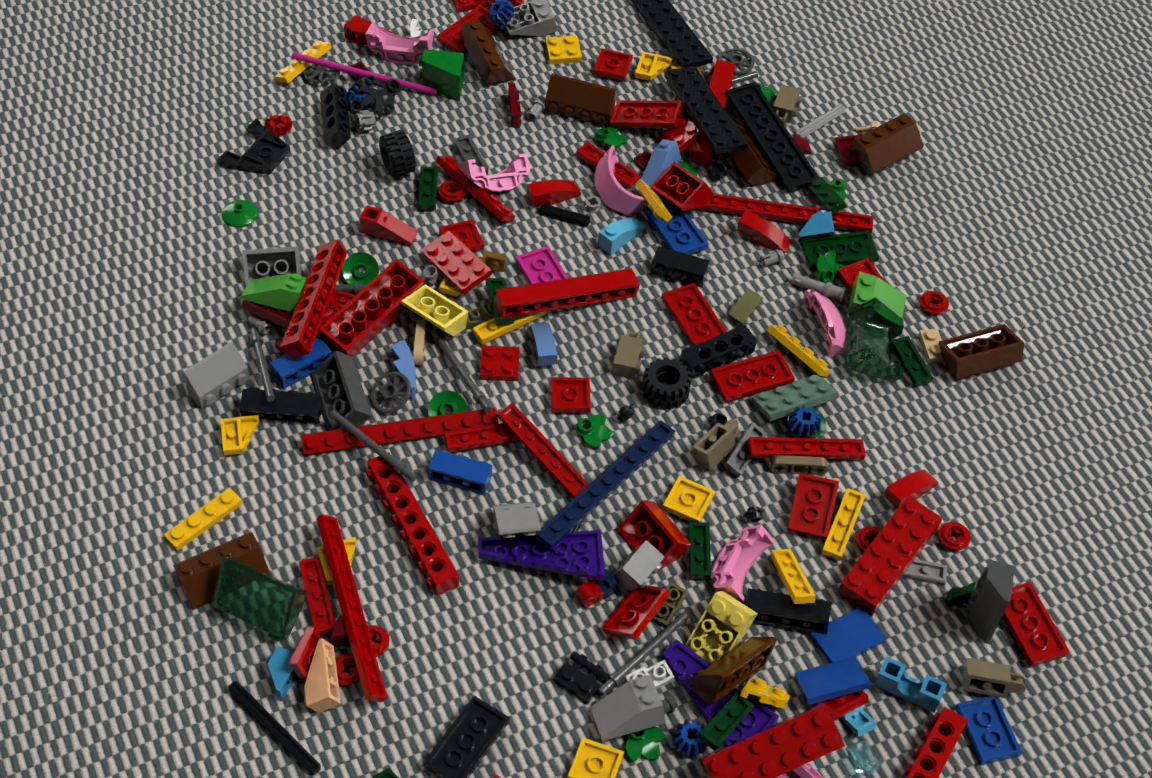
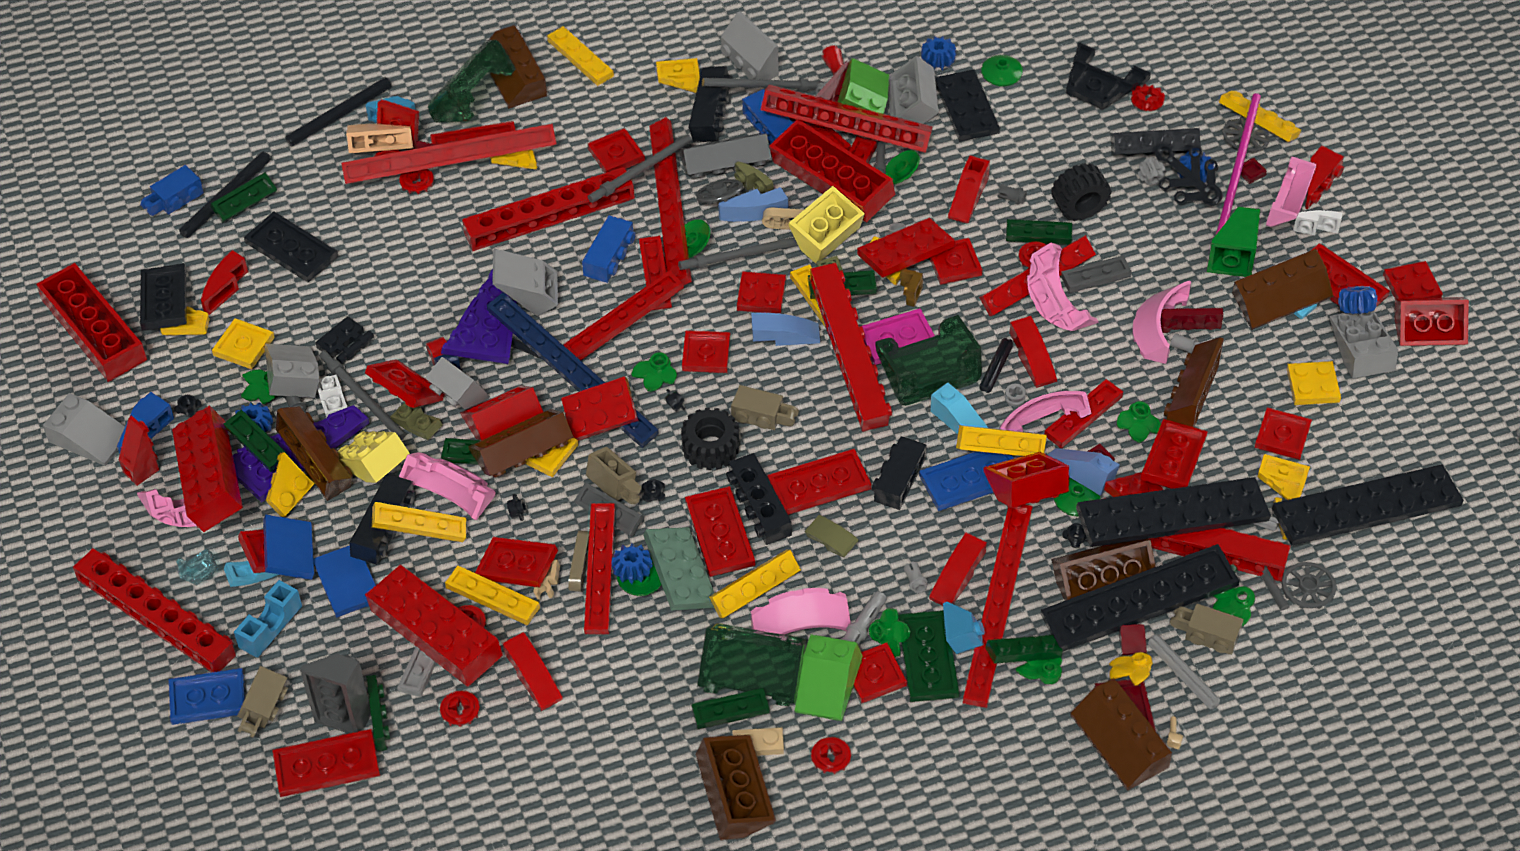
camera: 100 degrees right, 0 degrees up
(222, 249) = (938, 52): none -> blue gear
(224, 321) = (833, 58): none -> red cone
(284, 232) = (967, 105): none -> black plate
(337, 476) = (616, 151): none -> red plate
(371, 372) = (752, 178): none -> olive slope
(388, 200) = (1012, 194): none -> dark grey pin
(514, 125) = (1147, 324): none -> bright pink windscreen
(572, 243) = (929, 364): none -> clear green windscreen
(649, 458) = (599, 408): none -> red plate
(694, 510) = (521, 442): none -> reddish brown slope
(827, 145) = (1134, 666): none -> yellow plate

